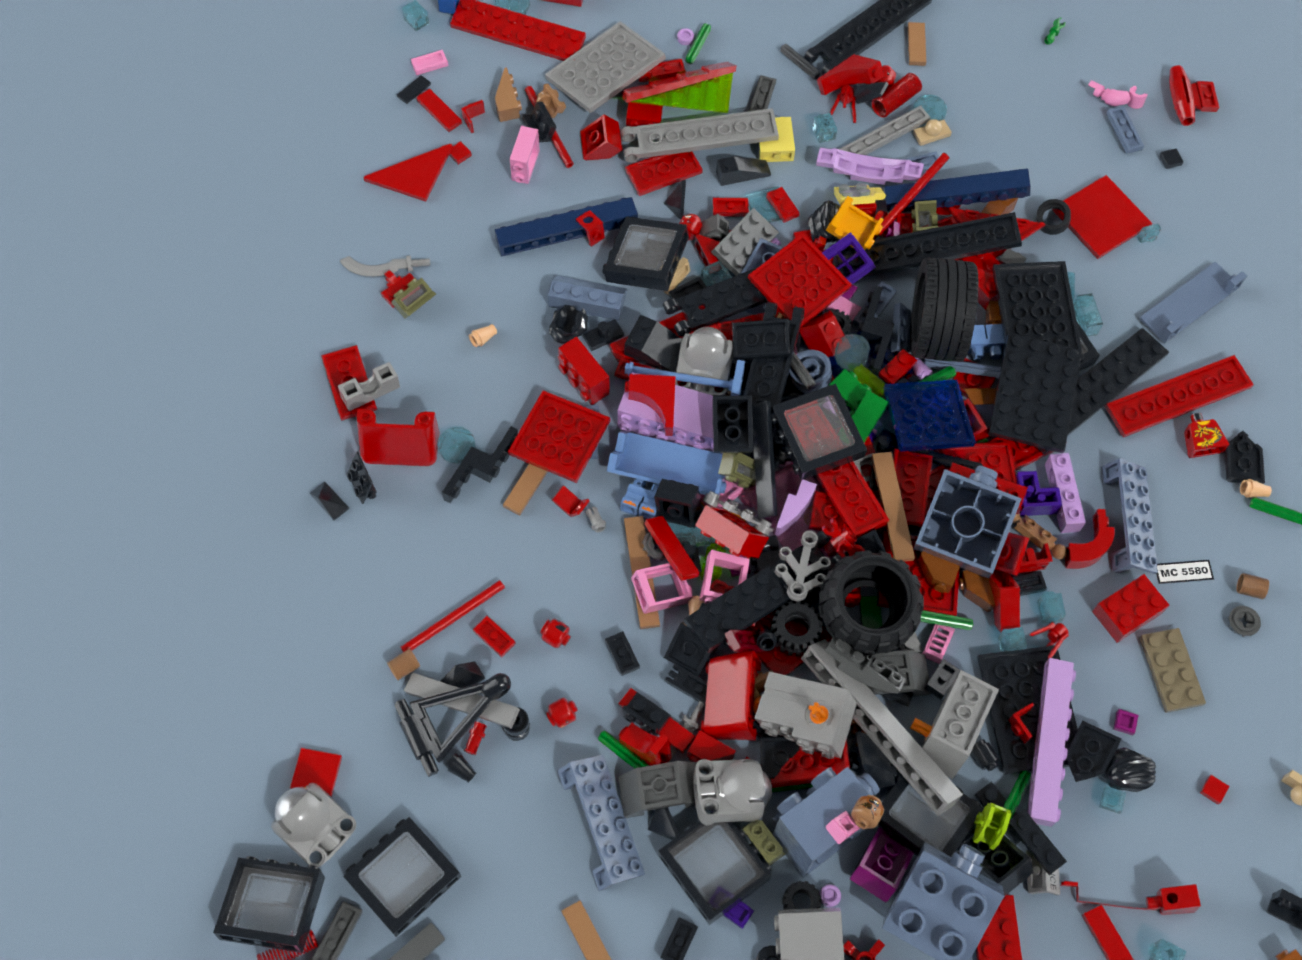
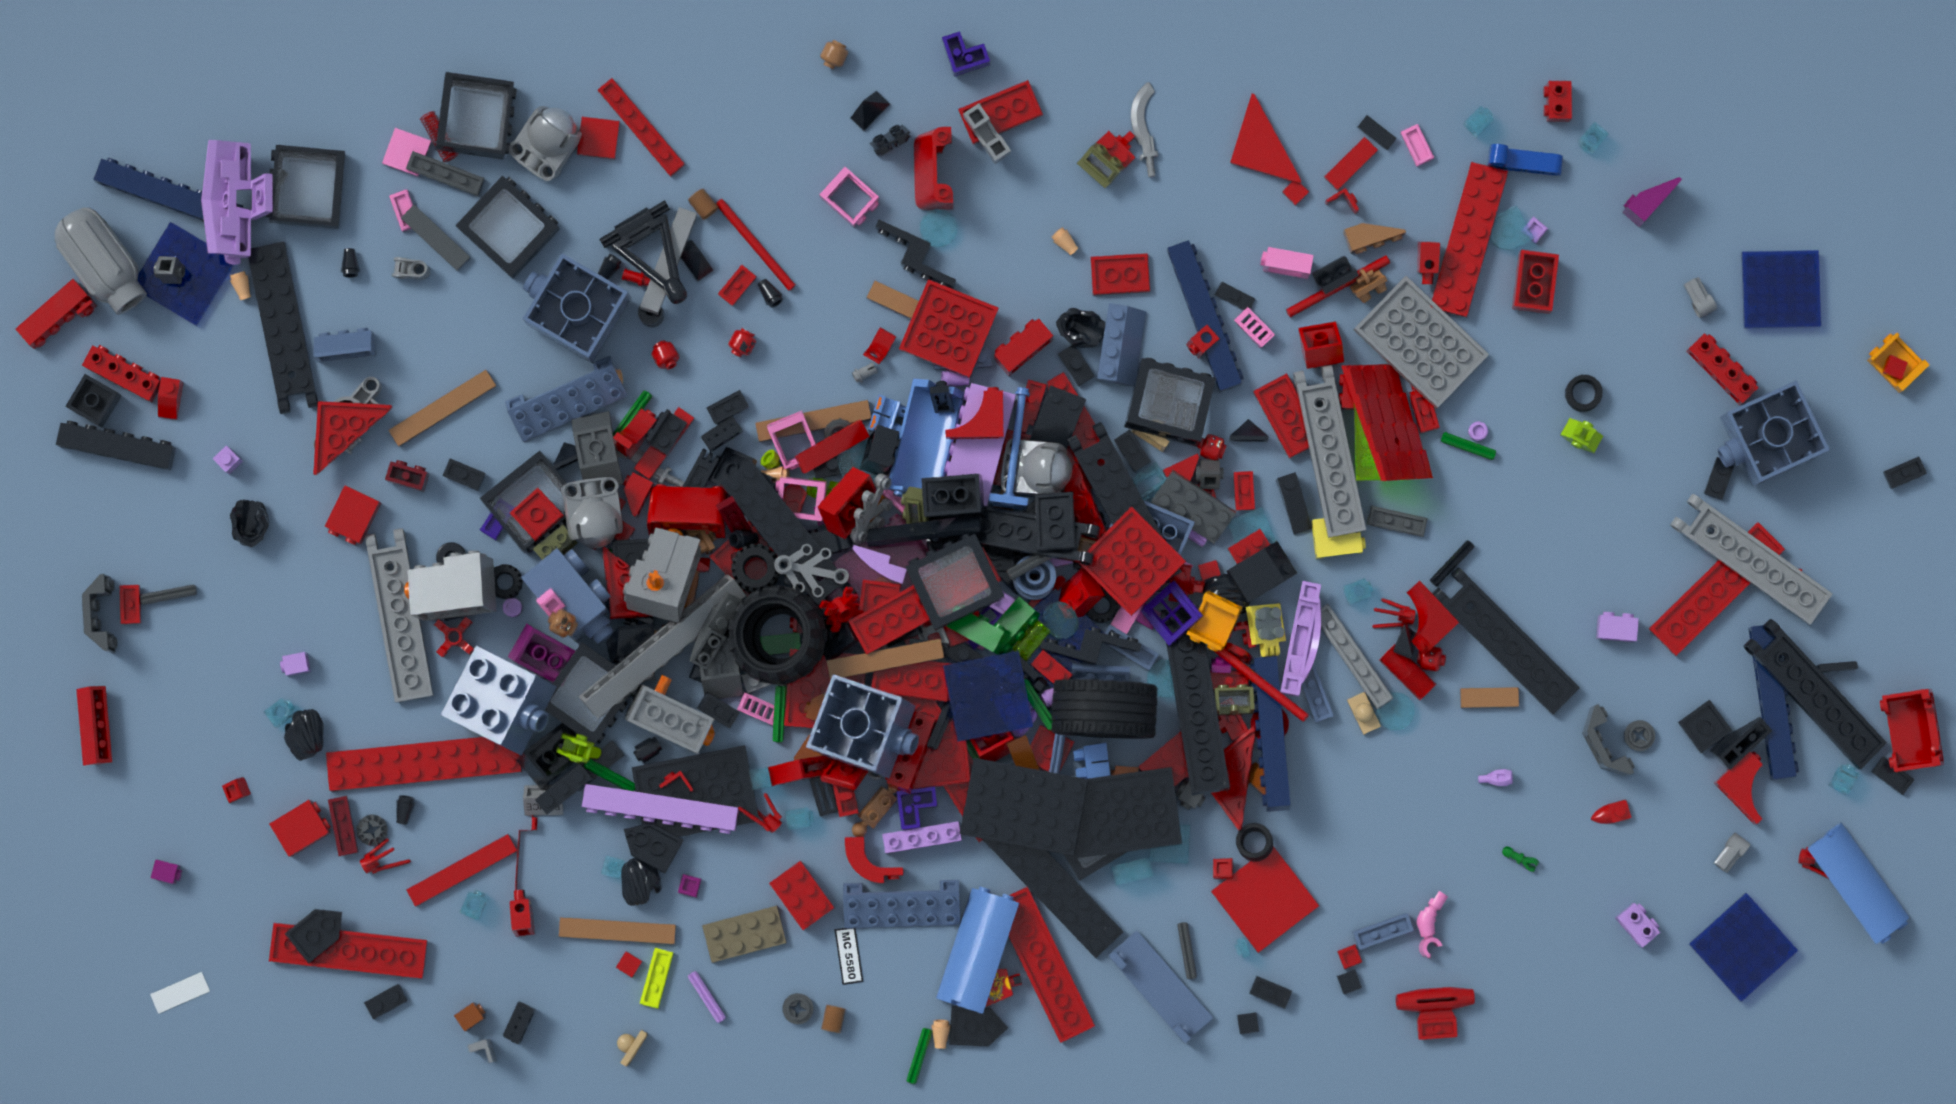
camera: 90 degrees right, 20 degrees up
(265, 527) = (834, 54): none -> medium nougat head
(288, 410) = (963, 59): none -> dark purple brick
(310, 727) = (641, 127): none -> red tile
(391, 522) = (833, 186): none -> bright pink window
(502, 798) = (574, 306): none -> sand blue brick
(506, 604) = (770, 294): none -> black cone
(519, 294) = (1120, 274): none -> red tile
(532, 55) = (1431, 252): none -> red torso
(550, 204) = (1234, 296): none -> black piece
(589, 181) = (1260, 343): none -> bright pink slope
(609, 439) = (954, 379): none -> lavender cone
(629, 442) = (941, 397): none -> black tile
(651, 659) = (721, 434): none -> black bracket
(679, 613) = (770, 460): none -> lime tile
(730, 856) = (536, 514): none -> red tile
(808, 189) = (1261, 572): none -> black slope
(903, 281) = (1161, 677): none -> clear light blue tile
(986, 40) = (1498, 777): none -> lavender piece
(1078, 245) = (1223, 868): none -> red tile
(1148, 157) = (1349, 956): none -> red tile
(1153, 279) = (1187, 952): none -> dark grey axle
(1174, 447) = (977, 949): none -> medium blue cylinder
(1179, 801) = (617, 930): none -> medium nougat tile
(1187, 216) = (1270, 992): none -> black plate
(1216, 236) = (1248, 1023): none -> black tile
(1226, 761) = (656, 978): none -> neon yellow tile
(1242, 710) = (706, 996): none -> lavender axle

